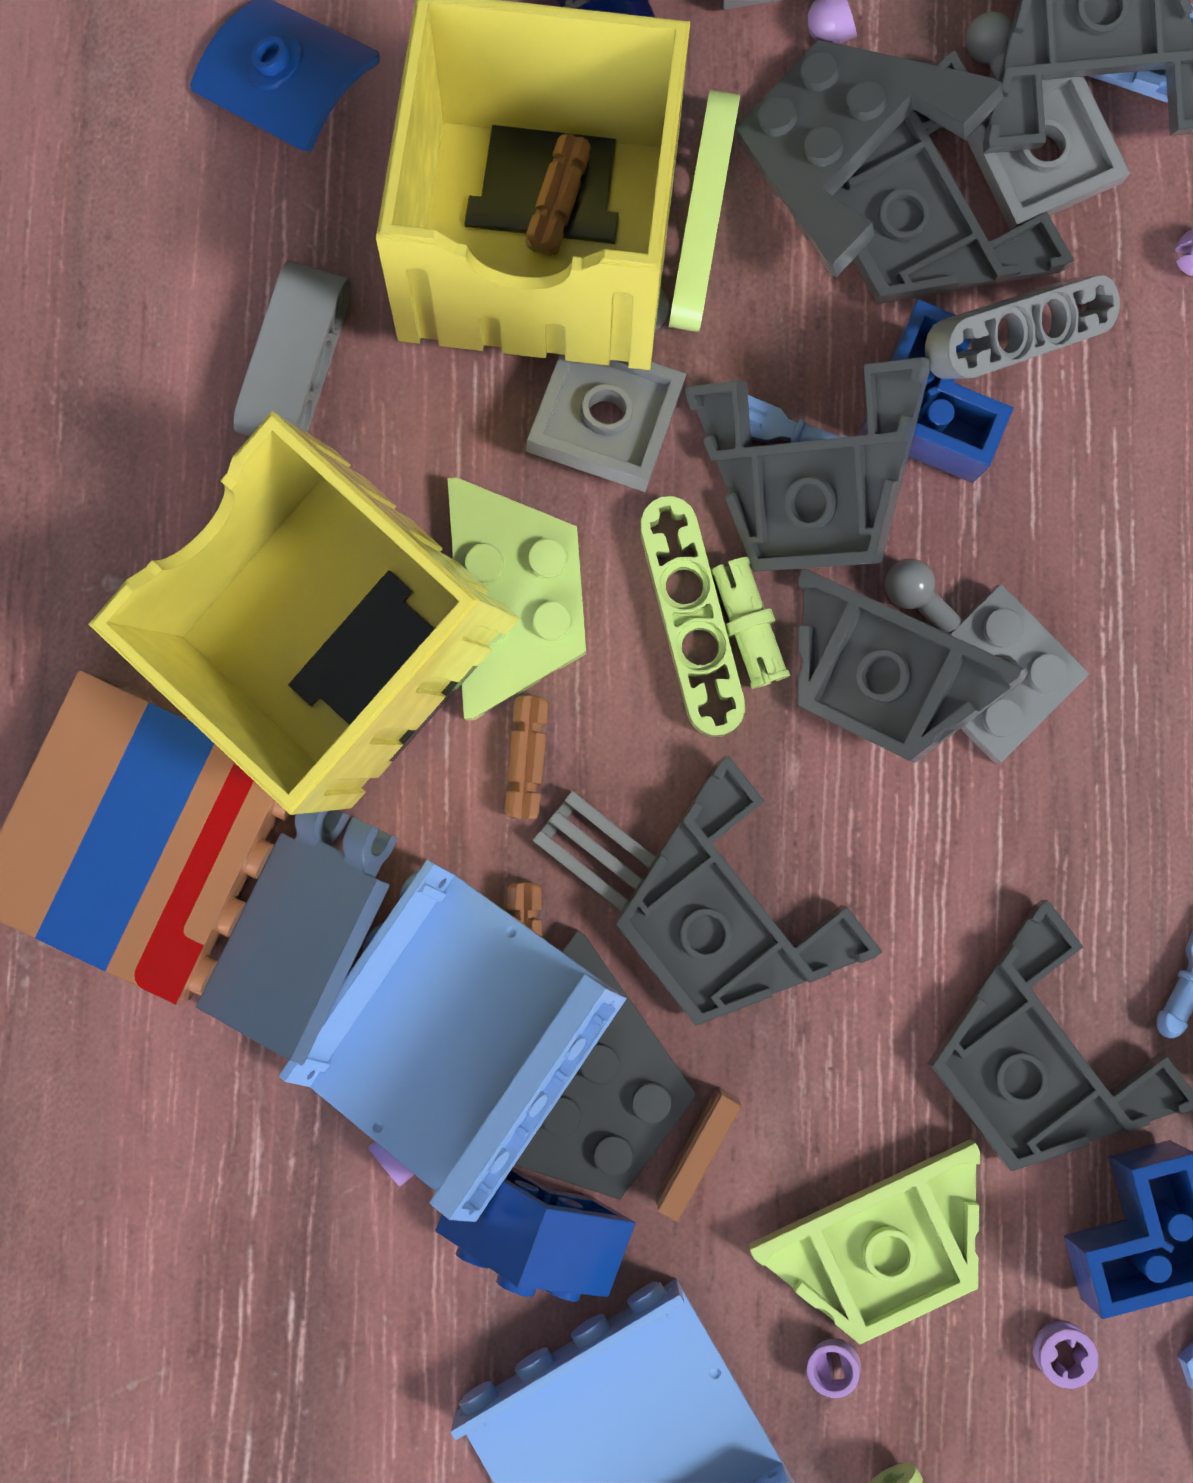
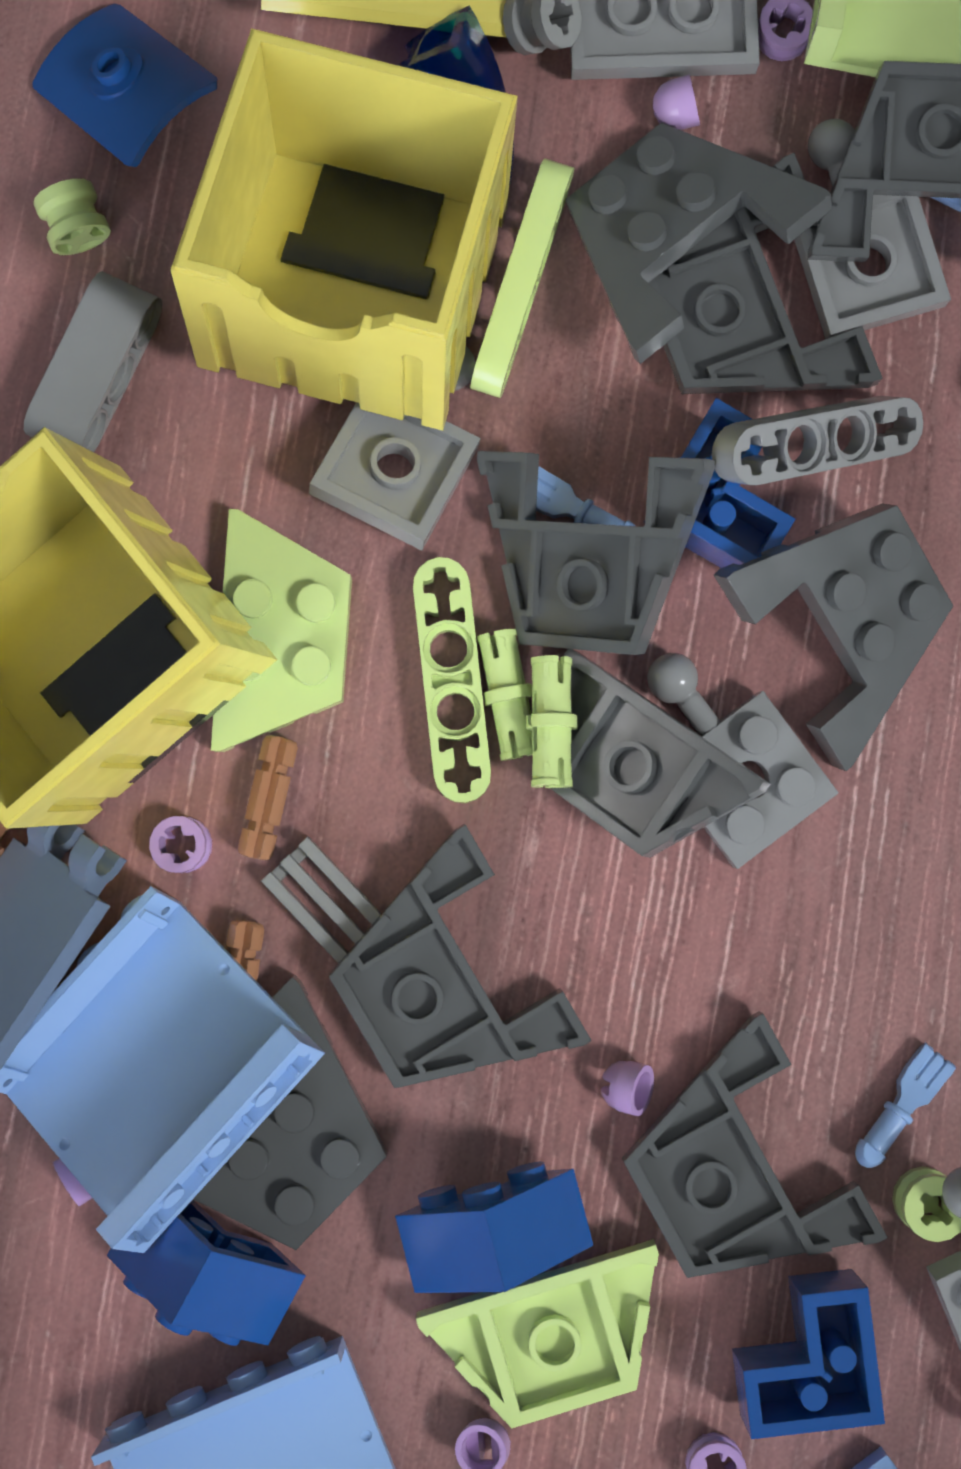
camera: 10 degrees right, 0 degrees up
(250, 211) = (71, 216): none -> yellowish green wheel
(439, 833) = (171, 861): none -> lavender bush
(558, 194) = (376, 243): nougat axle -> none
(697, 1153) = (378, 1215): nougat tile -> none
(799, 642) = (551, 721): none -> yellowish green pin
(816, 1153) = (494, 1231): none -> blue brick
(926, 992) = (629, 1087): none -> lavender hinge
(1098, 483) = (871, 601): none -> dark grey wing

